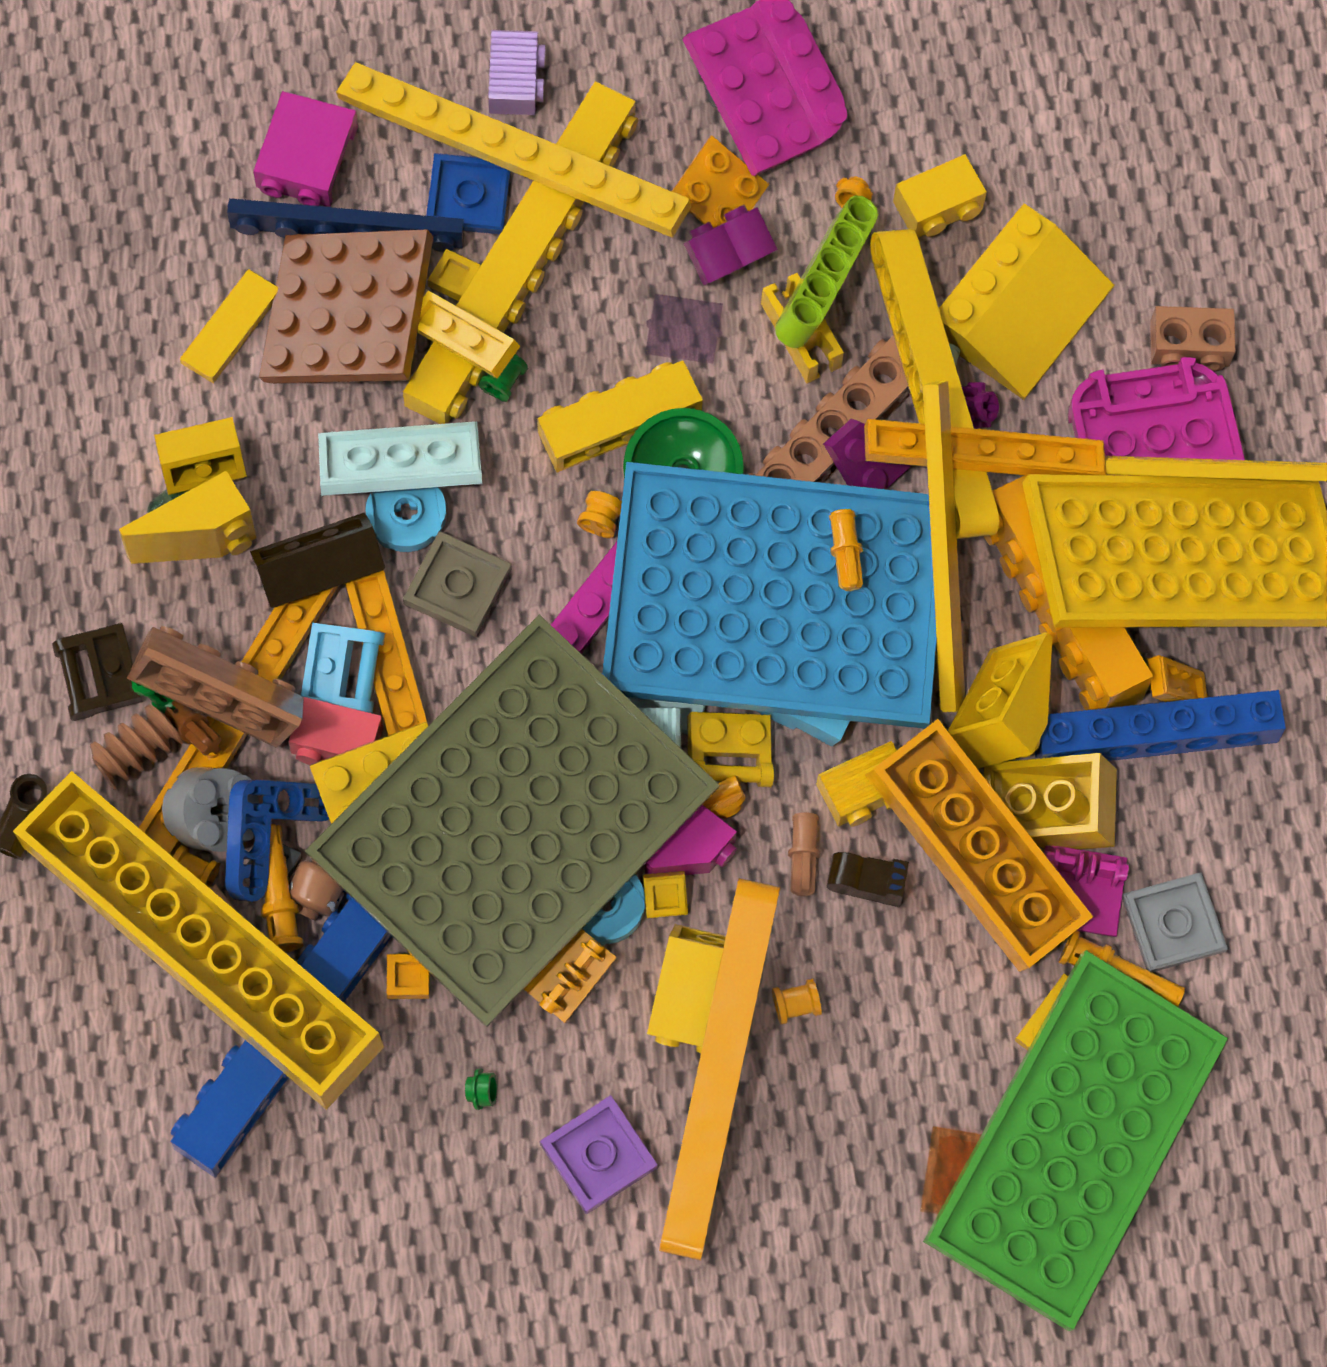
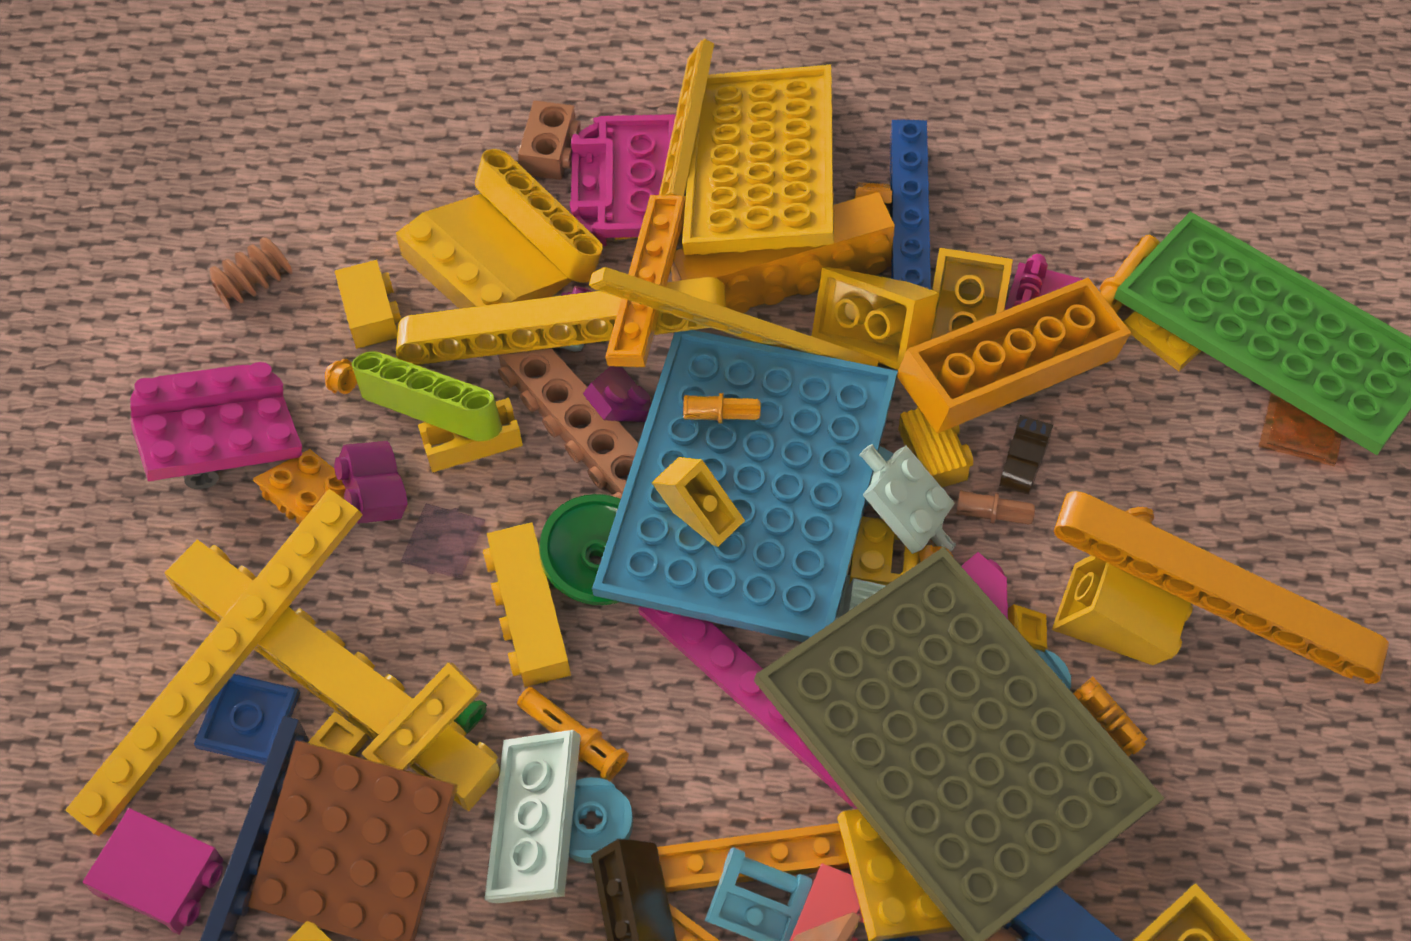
camera: 75 degrees left, 10 degrees down
(406, 978) = (1096, 880): light orange plate -> none
(457, 584) = (678, 779): dark tan plate -> none
(481, 1089) = (1215, 822): green plate -> none
(483, 497) = (590, 741): none -> light orange pin
(514, 72) = (126, 653): lavender brick -> none
(598, 1154) = (1284, 723): medium lavender plate -> none
(600, 514) = (628, 634): light orange wheel -> none
(730, 540) = (698, 499): none -> yellow slope
(782, 754) = (908, 498): none -> light aqua plate
(958, 77) = (248, 271): none -> nougat piece
(1102, 337) = (538, 215): none -> yellow beam
(1174, 922) = (1080, 238): light grey tile -> none

